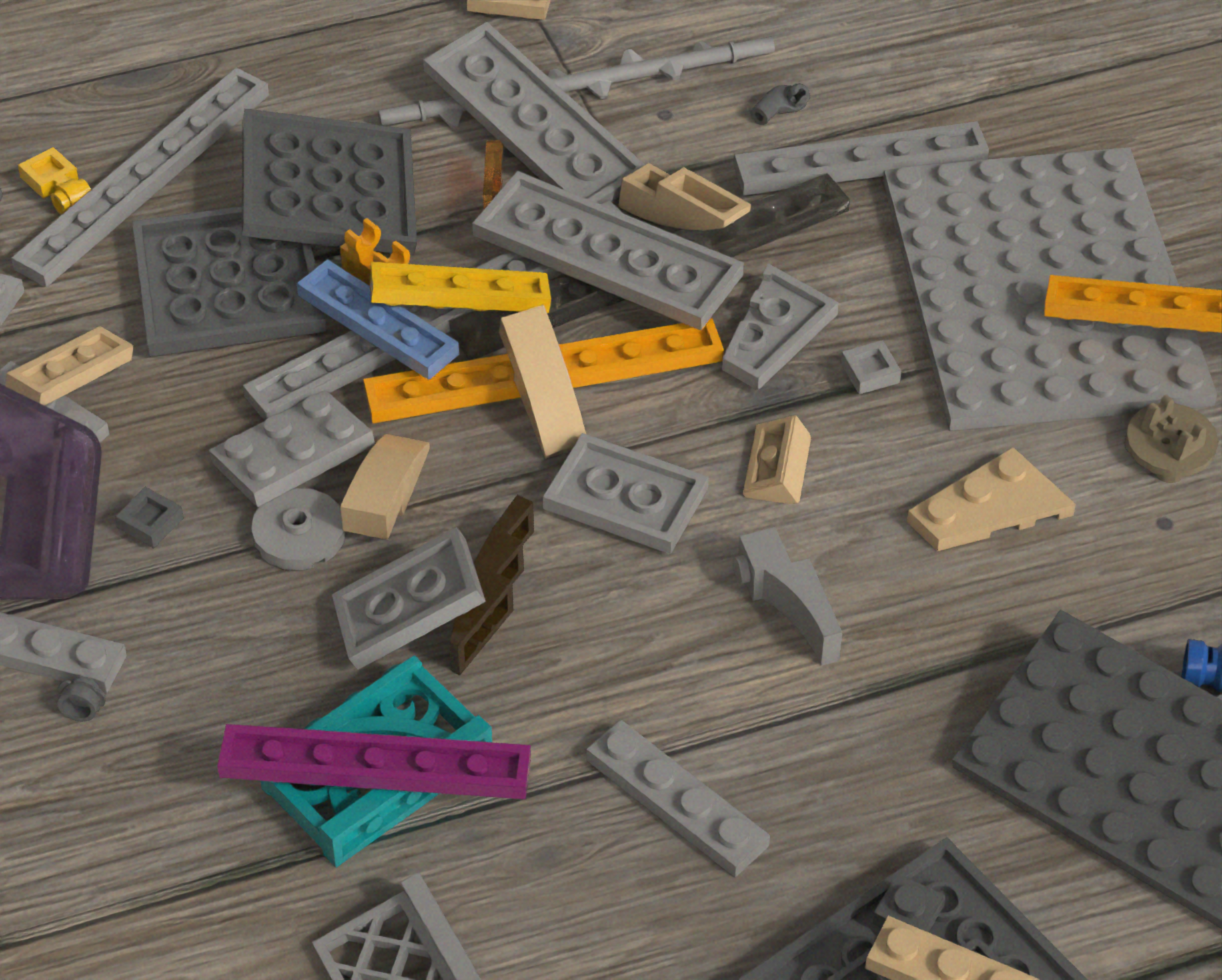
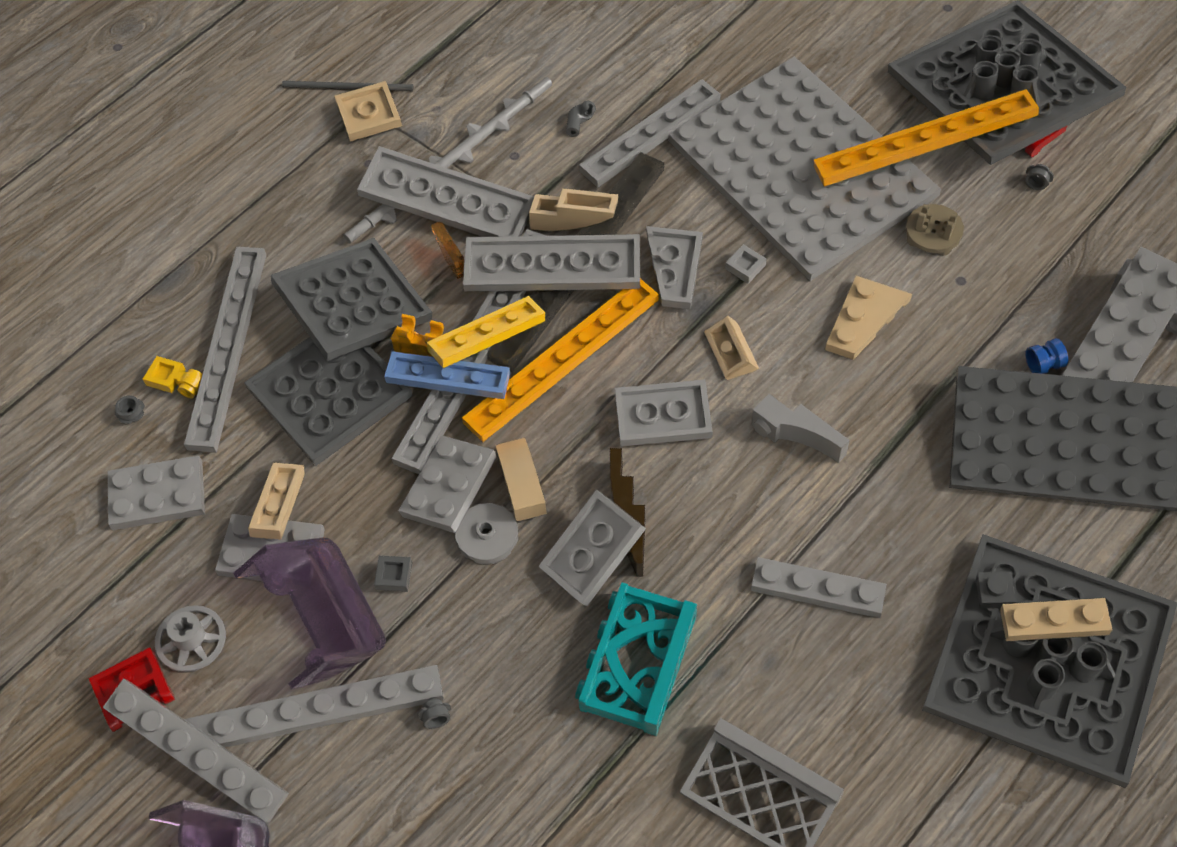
camera: 25 degrees left, 10 degrees up
(375, 761) = (651, 664): magenta plate -> none
(542, 380) = (574, 367): tan slope -> none

